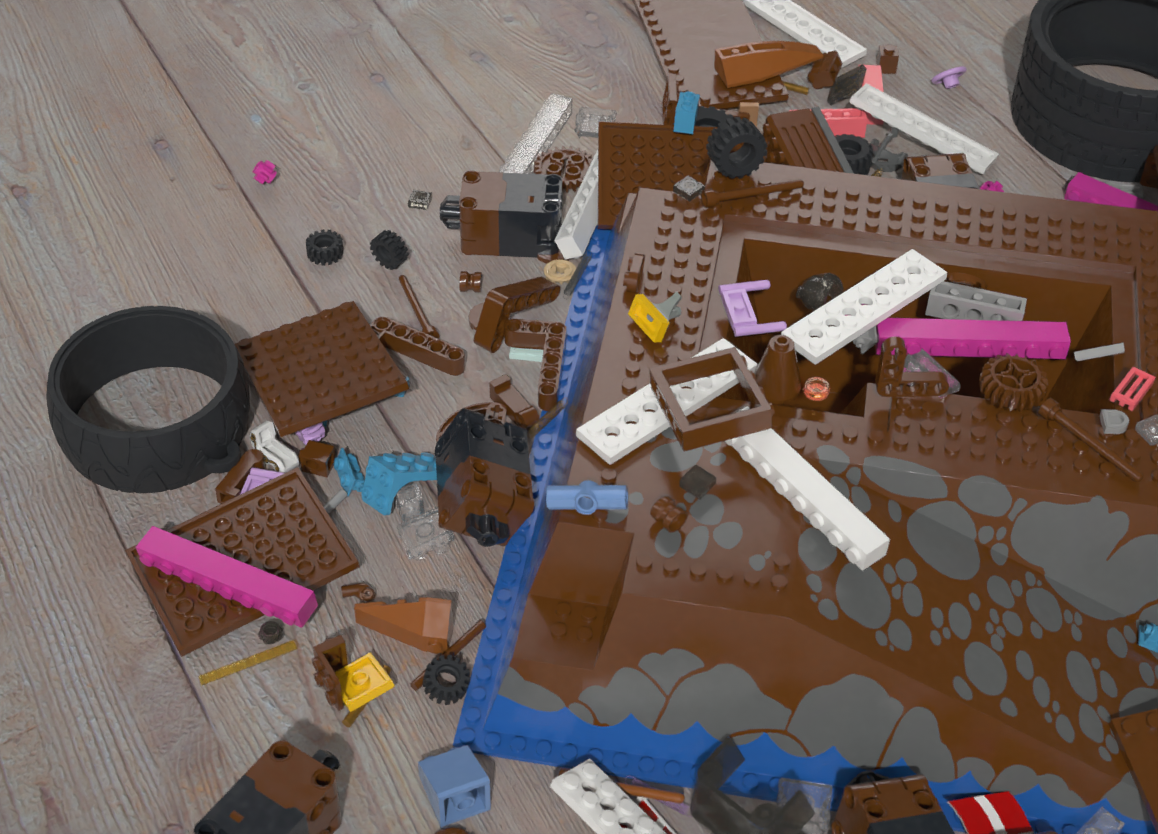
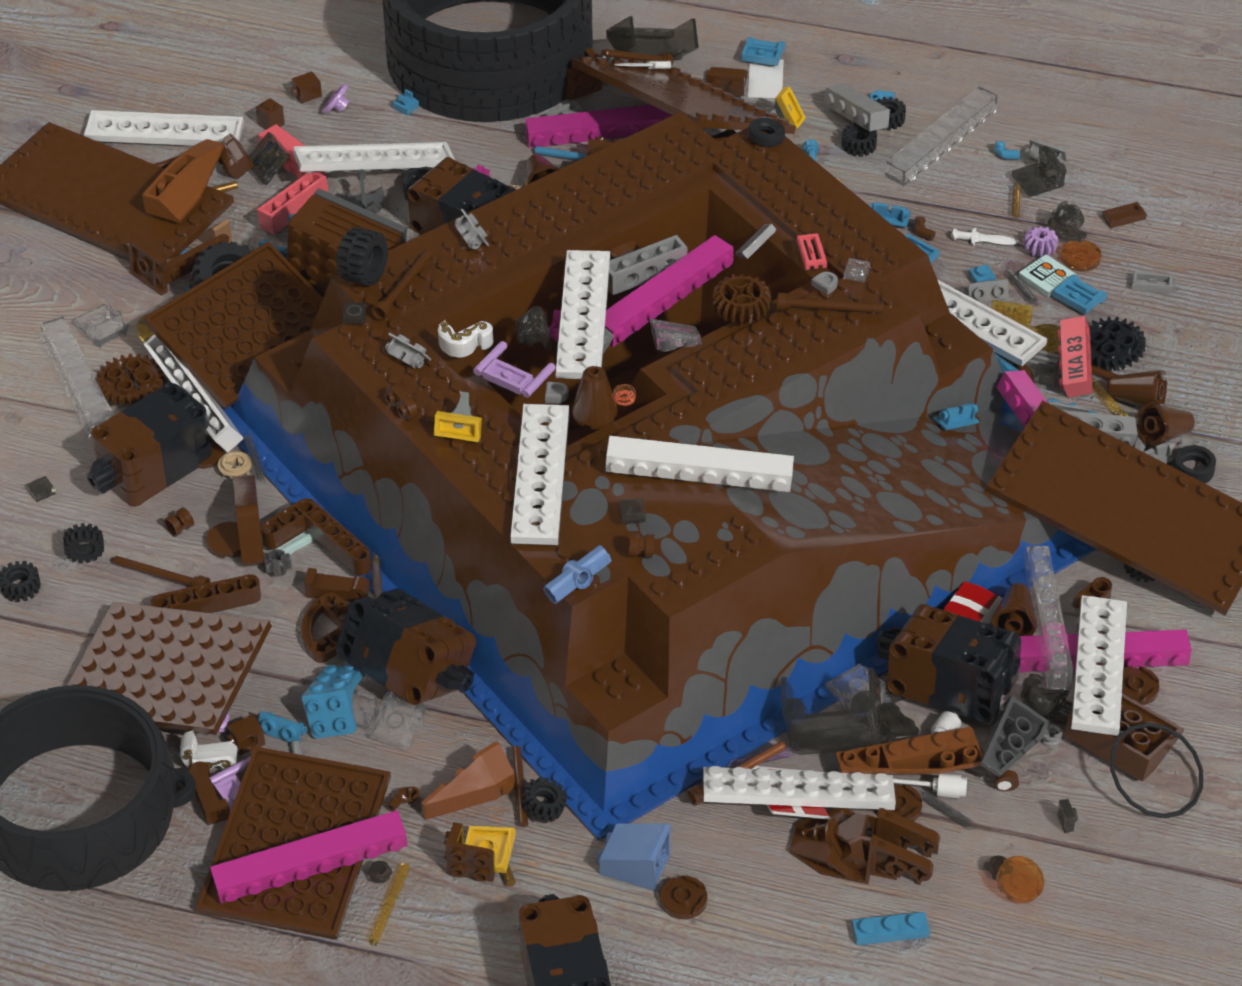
camera: 45 degrees left, 0 degrees up
(496, 357) = (277, 563): none -> flat silver gear
(686, 112) = (209, 262): dark azure brick -> none
(688, 239) = (413, 354): none -> light grey hinge
(719, 428) = (577, 475): reddish brown window -> none
(743, 261) = (465, 342): none -> white animal
(758, 347) = (556, 392): none -> light grey tile
(856, 187) = (471, 233): none -> light grey hinge
(935, 382) = (671, 346): reddish brown beam -> none
(938, 57) = (306, 87): none -> reddish brown brick
(1003, 111) = (406, 103): none -> dark azure tile

